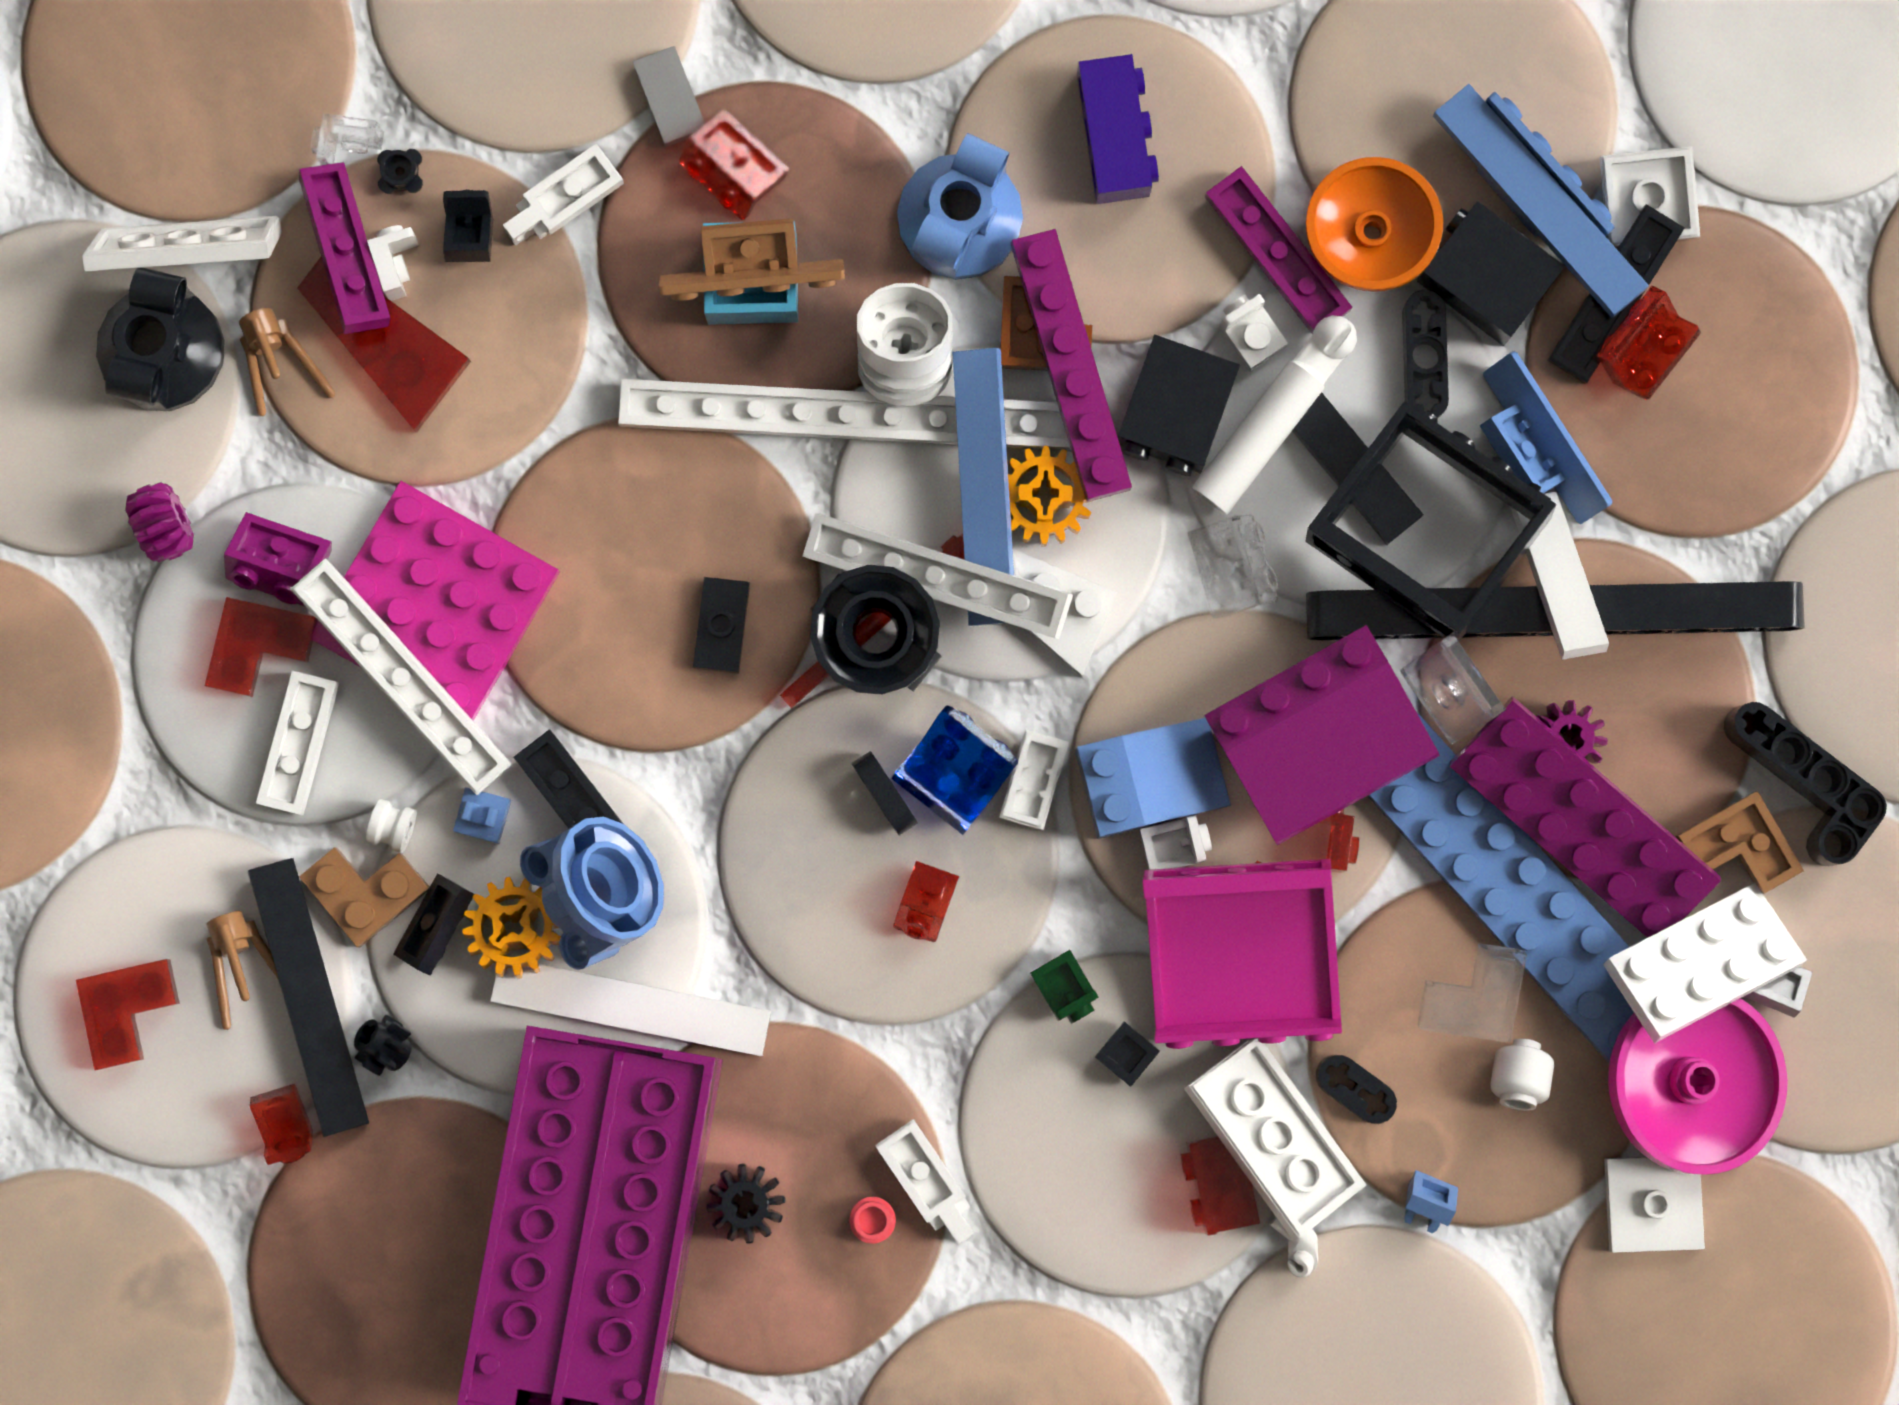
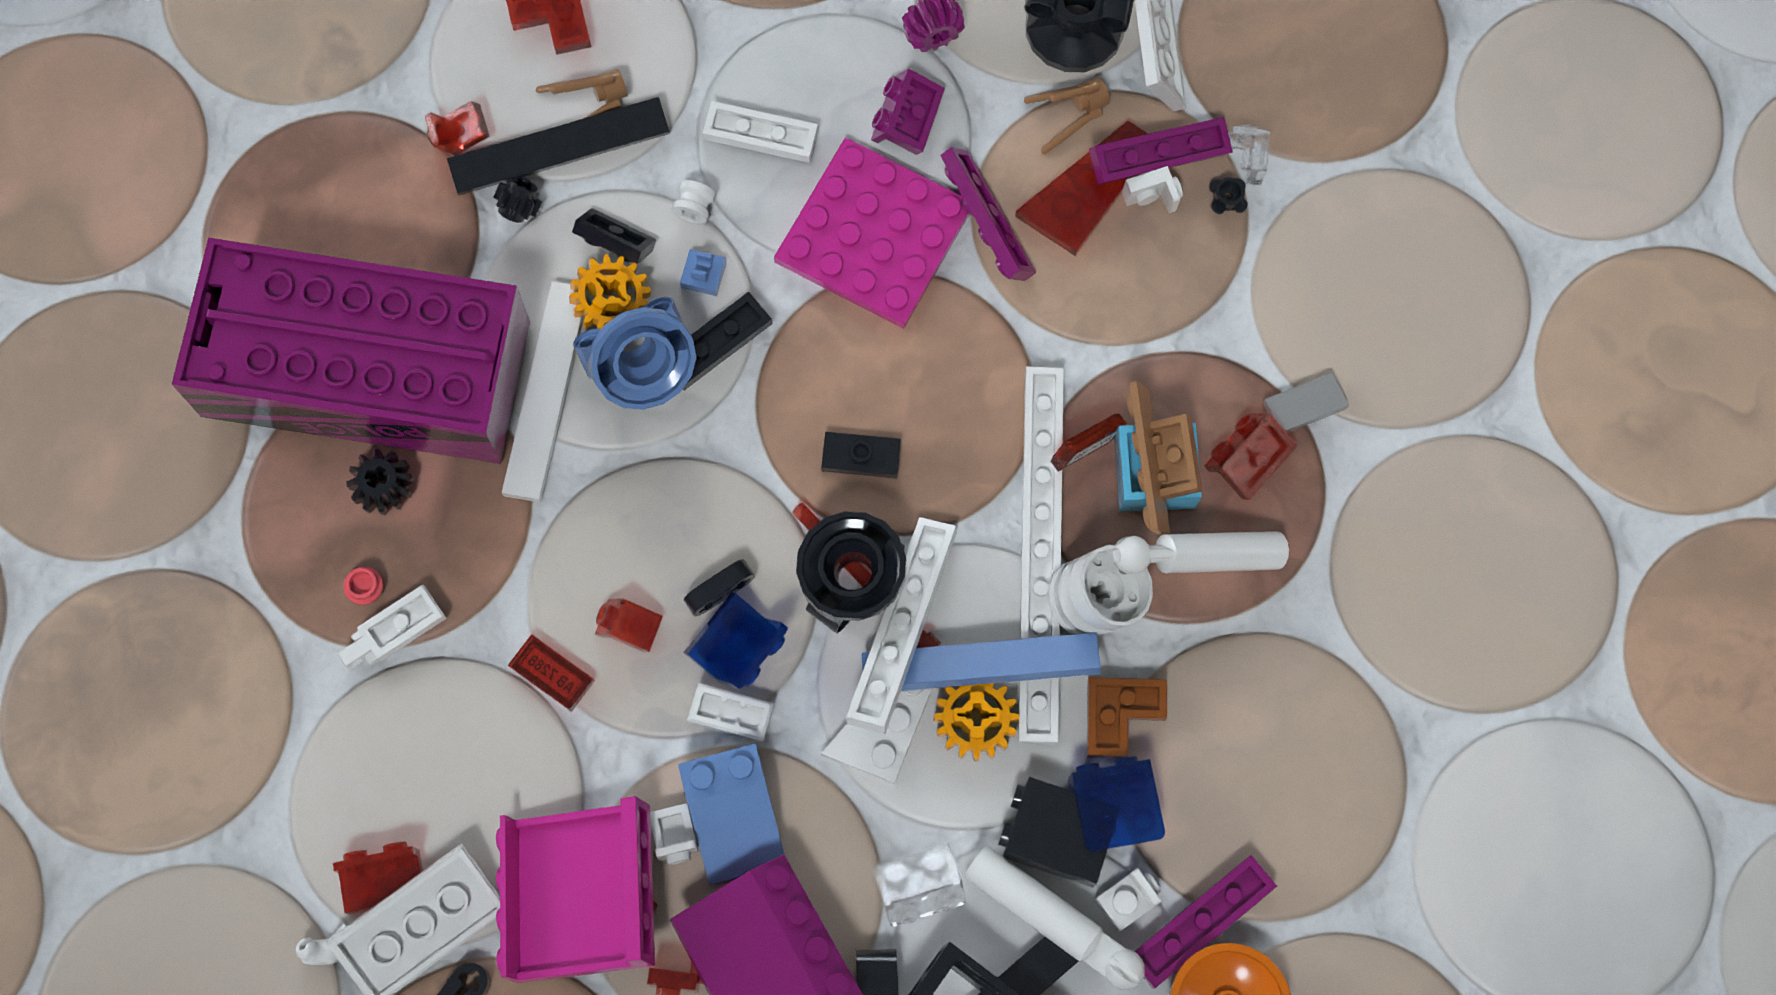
camera: 90 degrees right, 10 degrees down
(246, 634) = (845, 91): clear red plate -> none
(361, 905) = (632, 185): medium nougat plate -> none
(401, 676) = (811, 203): white tile -> none
(404, 470) = (981, 204): none -> magenta plate
(467, 226) = (1184, 247): black bracket -> none
(564, 195) = (1215, 321): white hinge -> none
(717, 352) = (1087, 442): none -> clear red tile
(862, 222) = (1203, 552): none -> white piece
(970, 245) = (1206, 667): medium blue piece -> none
(981, 992) = (551, 673): none -> clear red tile
(1065, 987) = (551, 741): dark green bracket -> none
(1071, 365) = (1089, 736): magenta plate -> none
(1116, 128) = (1303, 775): dark purple brick -> none
(1127, 1054) = (494, 795): black plate -> none
(1148, 337) = (1117, 804): none -> clear blue bracket

